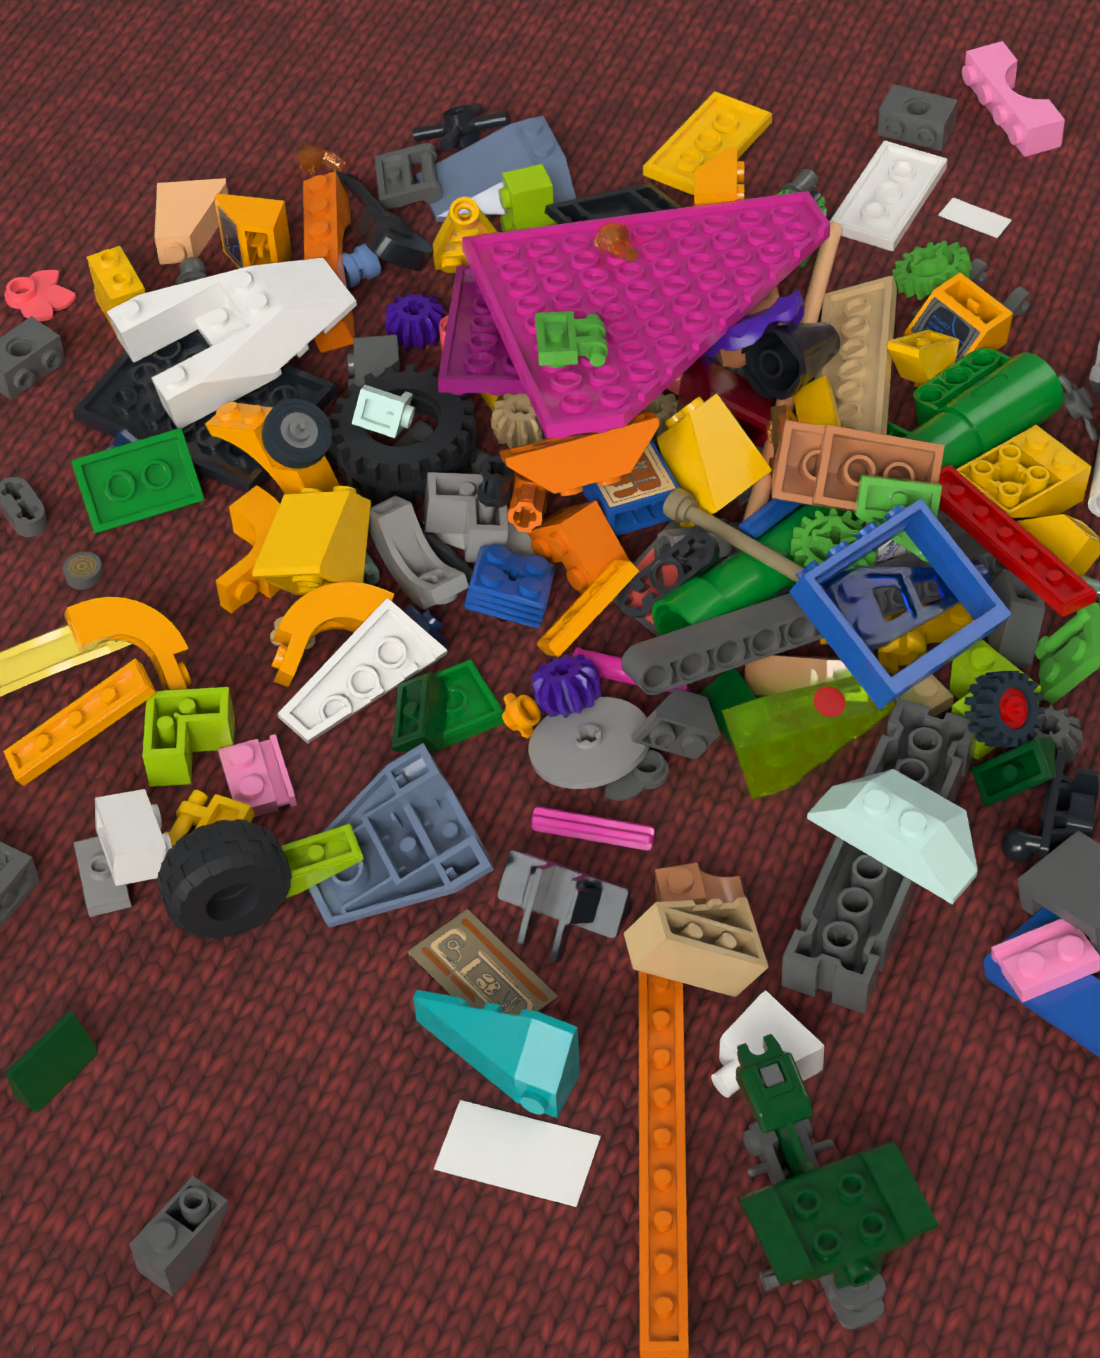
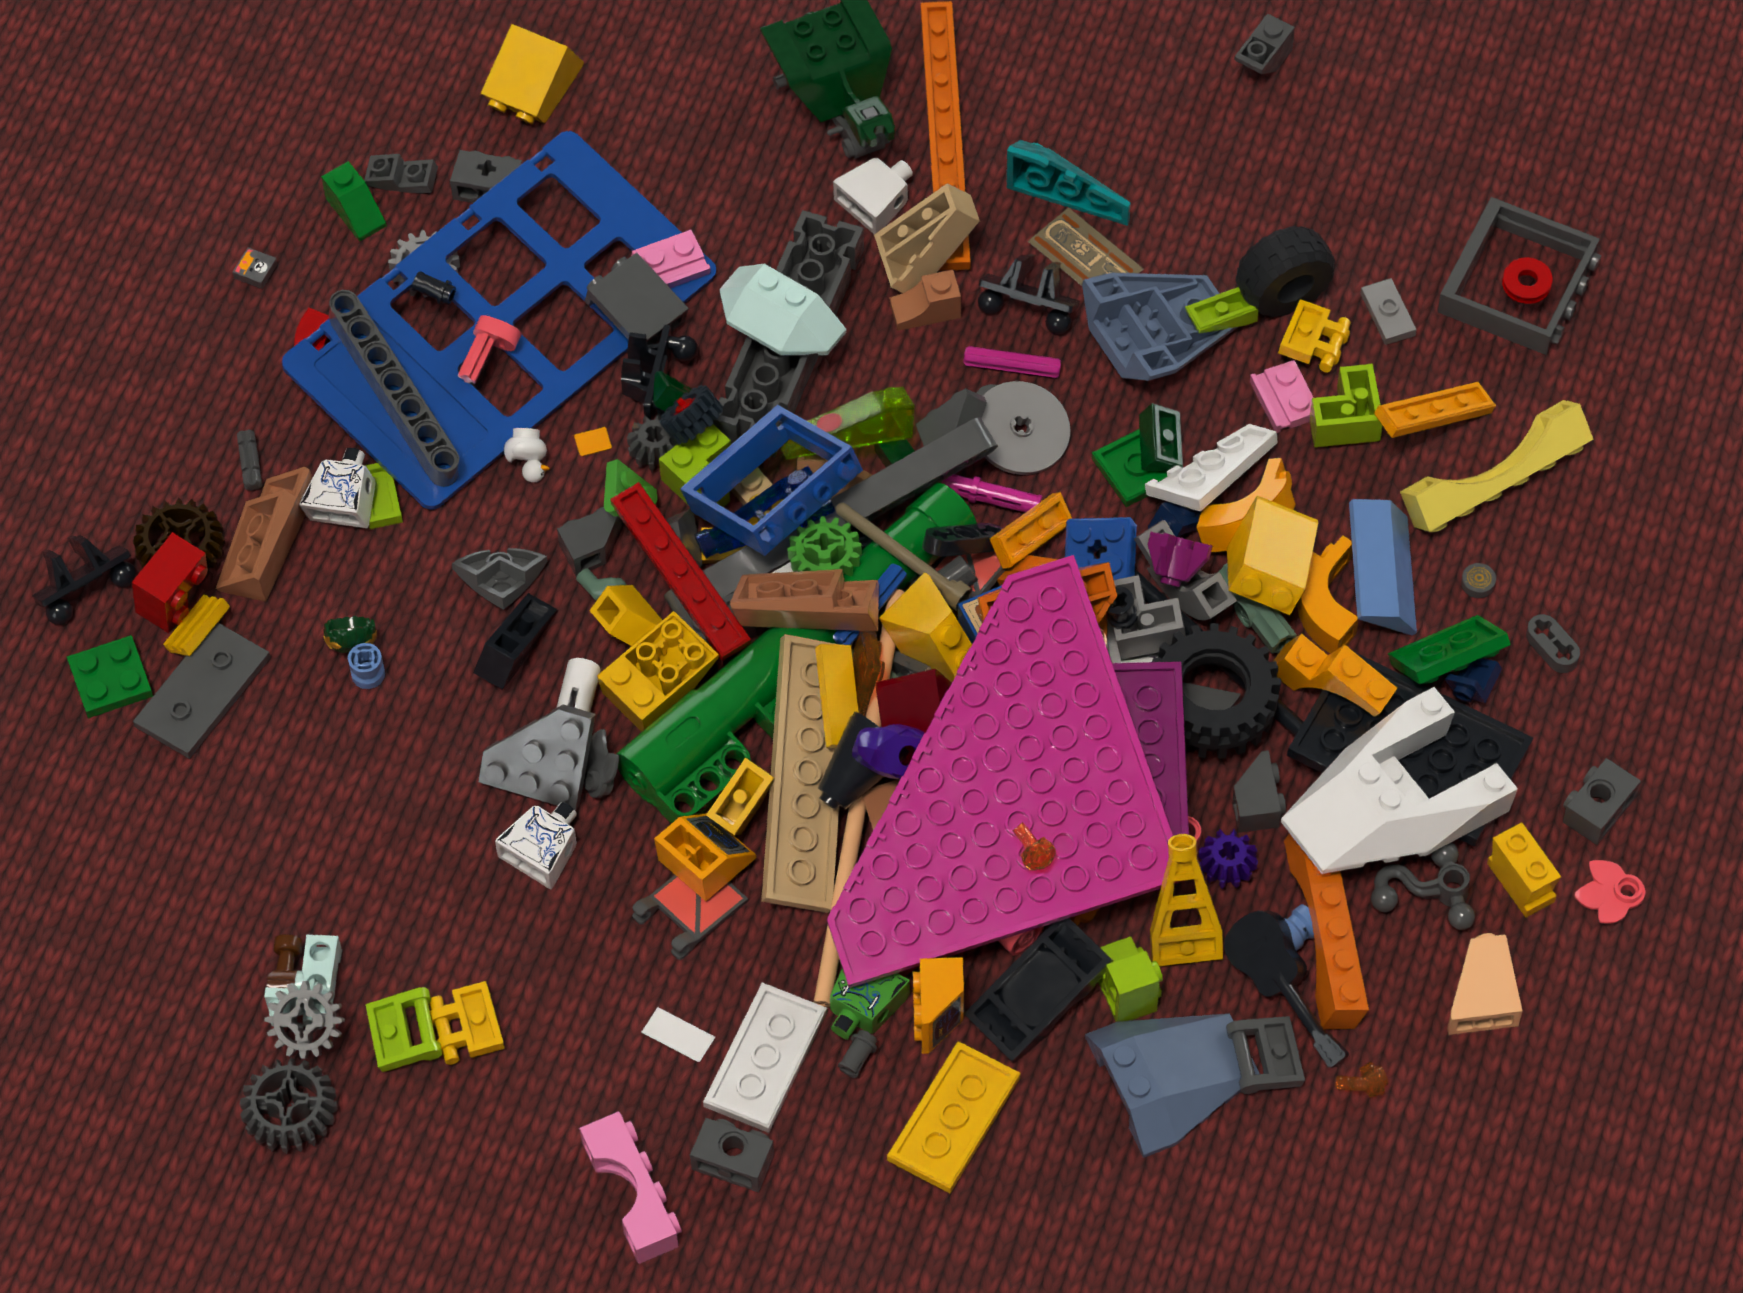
camera: 175 degrees right, 10 degrees up
(51, 1063) = (1386, 168): dark green slope -> none
(131, 836) = (1366, 310): white brick -> none
(135, 623) = (1410, 470): light orange arch -> none
(191, 562) = (1382, 565): none -> medium blue slope
(253, 230) = (1406, 940): light orange slope -> none
(296, 433) = (1305, 646): black wheel -> none
(383, 411) = (1234, 670): light aqua bracket -> none
(422, 546) = (1176, 557): none -> magenta brick
(461, 126) = (1204, 1118): black bar -> none
(517, 1153) = (1063, 133): white sticker -> none
(521, 714) = (1078, 449): light orange plate -> none
(564, 339) = (1074, 667): bright green plate -> none
(566, 685) = (1043, 453): dark purple gear -> none
(881, 494) = (756, 566): bright green wing -> none
(930, 267) = (716, 920): bright green gear -> none

